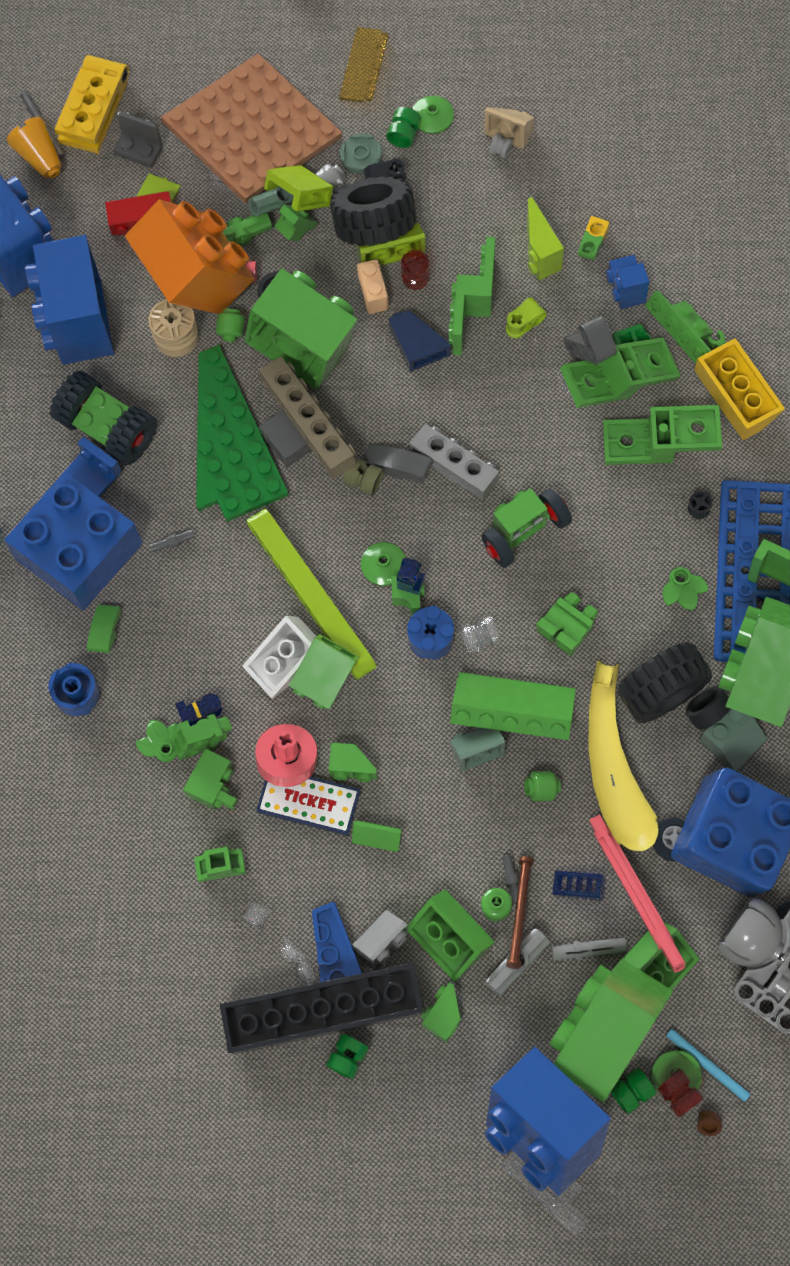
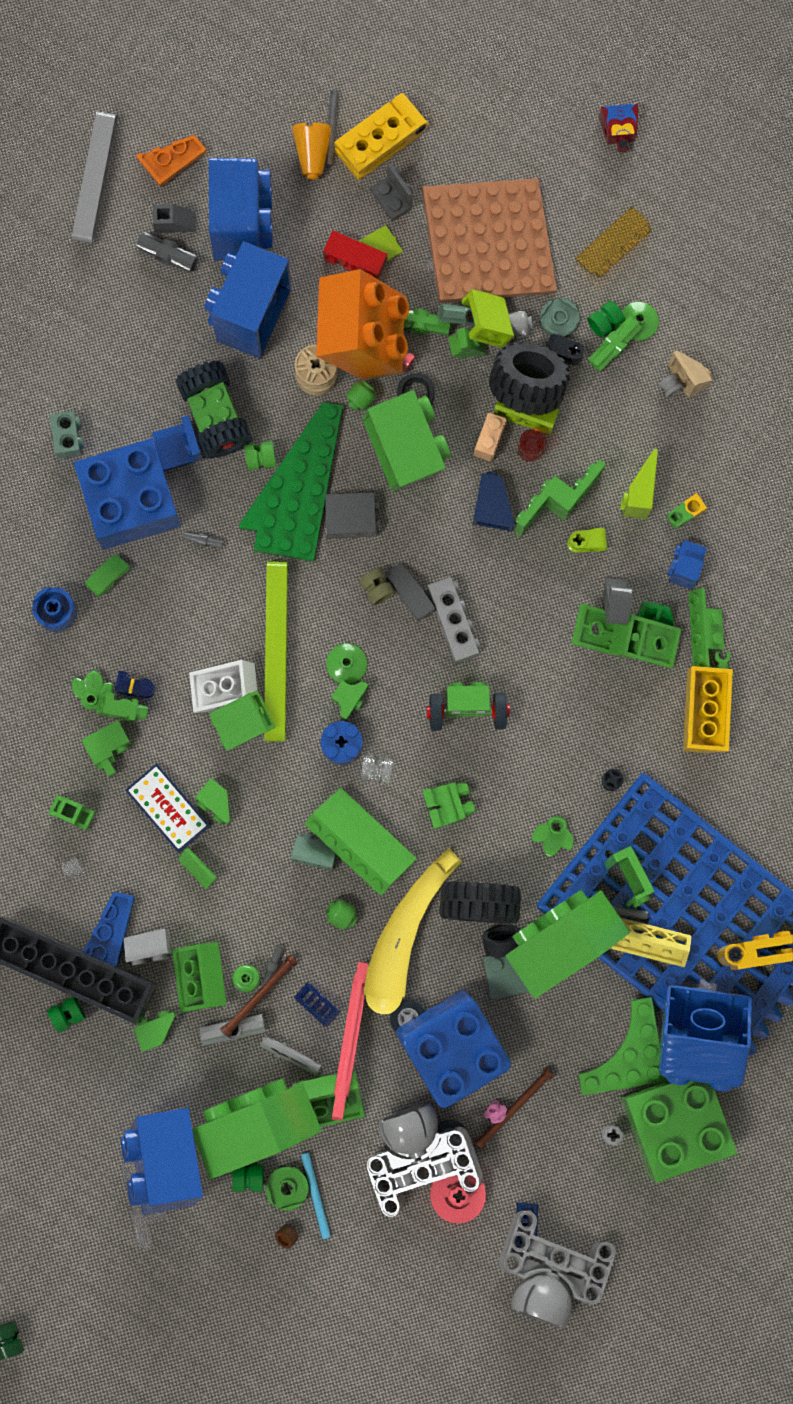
camera: 25 degrees right, 10 degrees up
(175, 431) = (260, 455): none -> bright green wheel
(283, 742) = (182, 751): coral piece -> none
(295, 956) = (79, 914): clear slope -> none
(335, 461) = (362, 463): dark tan brick -> none
(409, 576) = (352, 693): clear blue leg -> none
(426, 142) = (615, 343): none -> bright green piece
(662, 435) = (622, 707): bright green bracket -> none
(680, 1093) = (277, 1204): clear red wheel -> none

